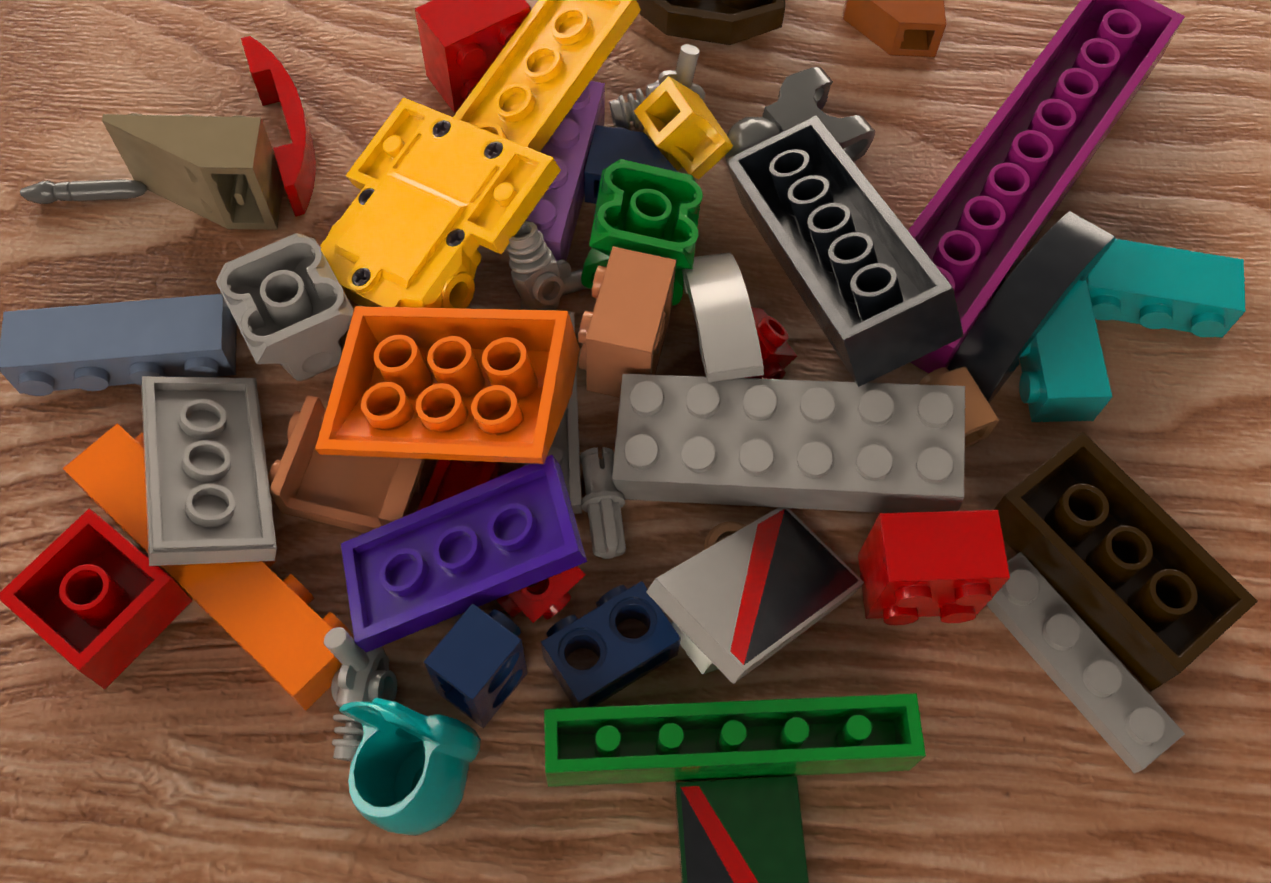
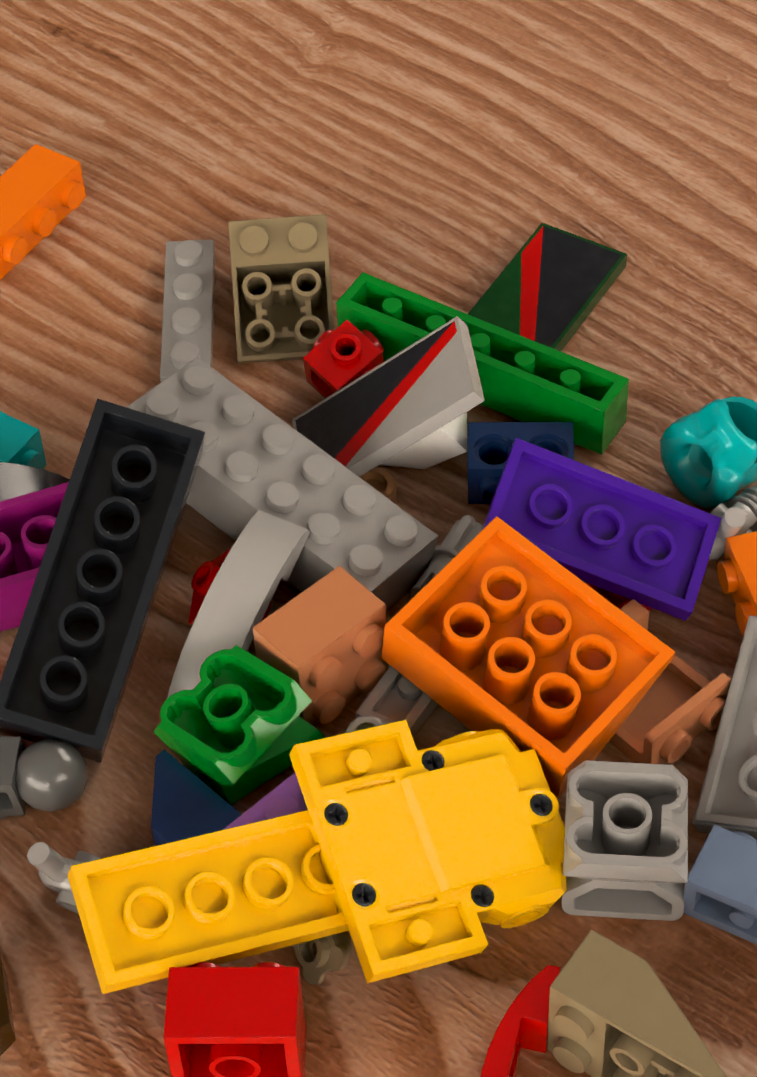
camera: 140 degrees left, 15 degrees down
(478, 663) = (637, 453): dark blue brick -> none
(683, 128) = (108, 811): yellow brick -> none
(859, 653) = (341, 358): none -> red brick
(932, 565) = (253, 357): red brick -> none
(1016, 740) = (280, 286): none -> dark tan slope
(1121, 562) = (104, 323): dark brown brick -> none

